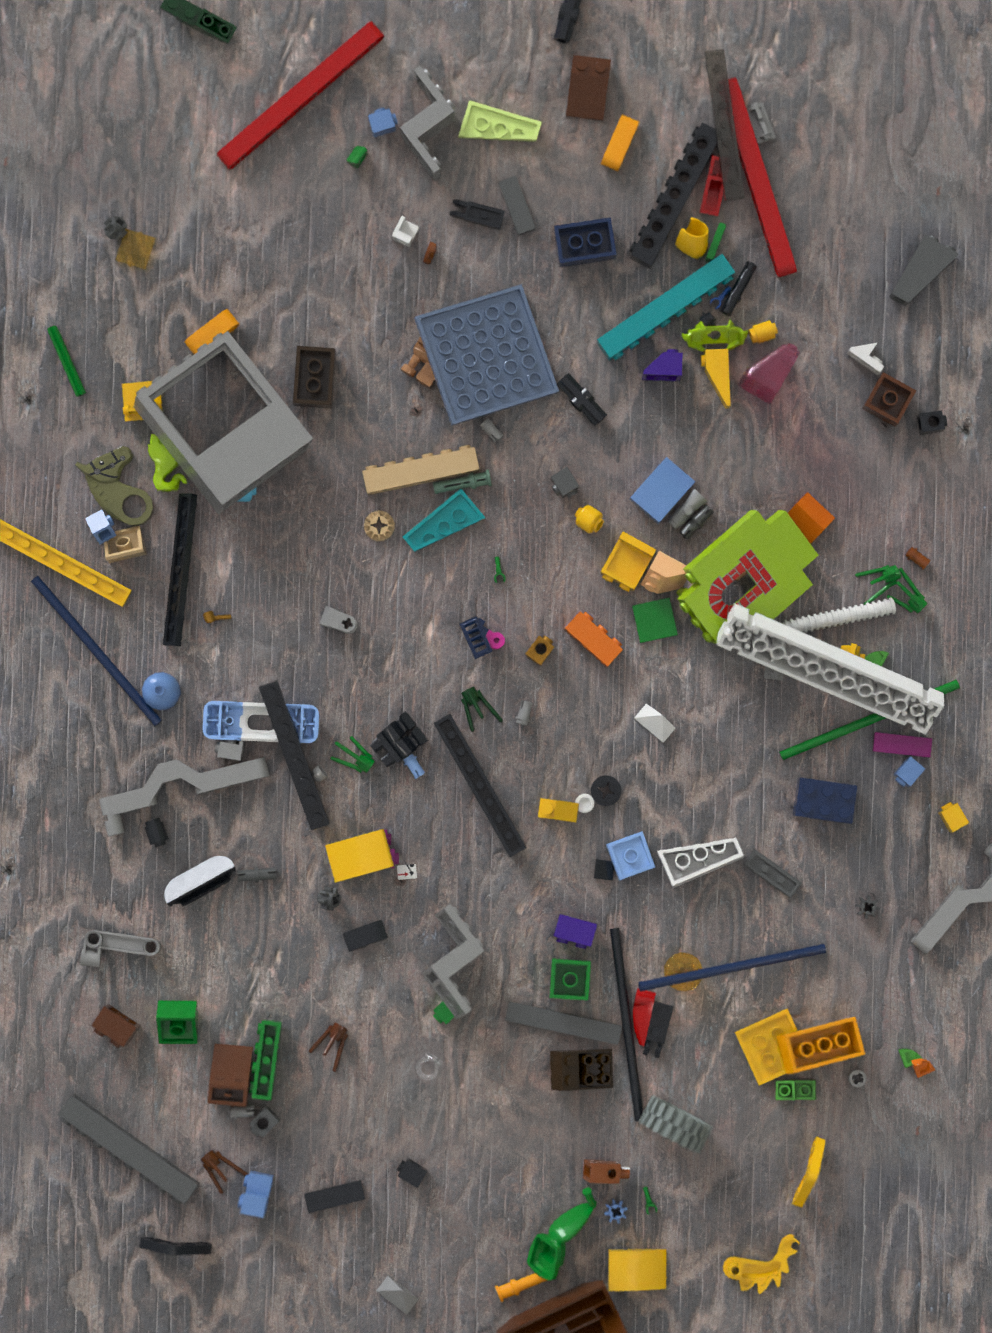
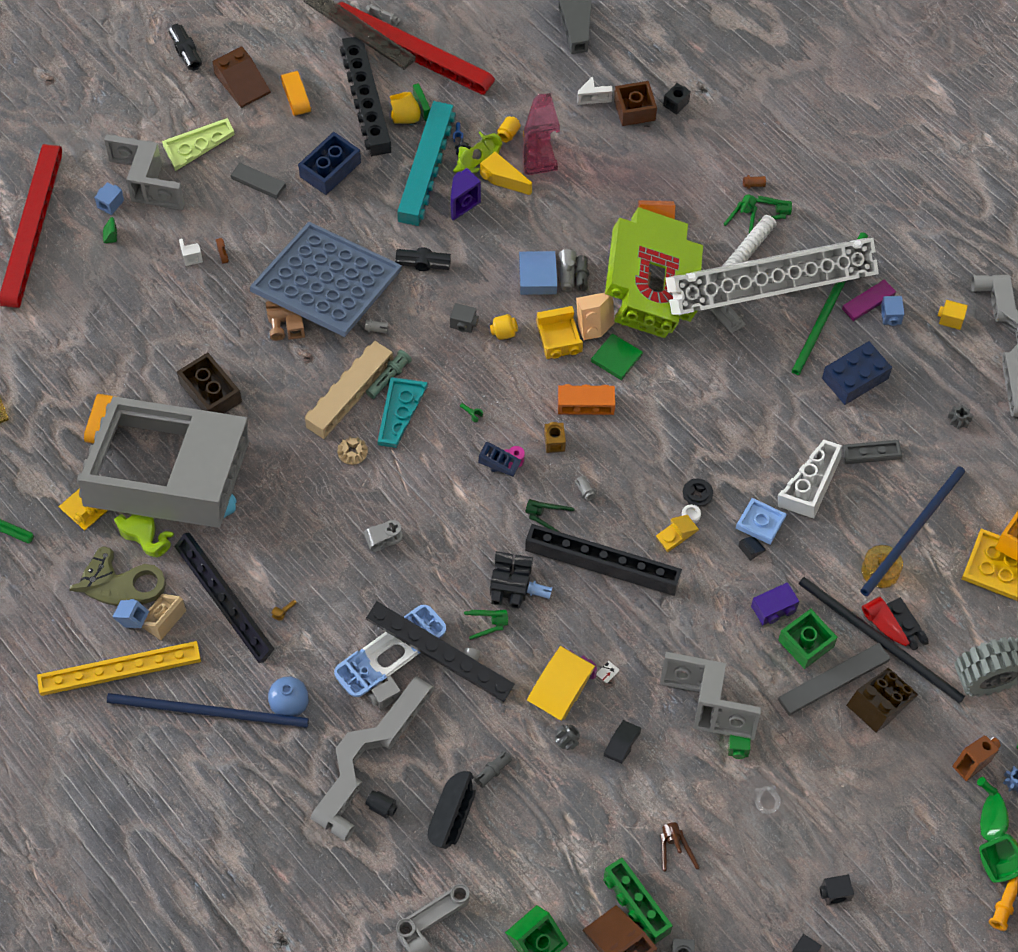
camera: 40 degrees left, 25 degrees down
(479, 214) = (234, 204): black hinge -> none
(654, 722) = (685, 419): white slope -> none
(713, 189) = (387, 72): red slope -> none
(735, 294) = (466, 121): black pin -> none

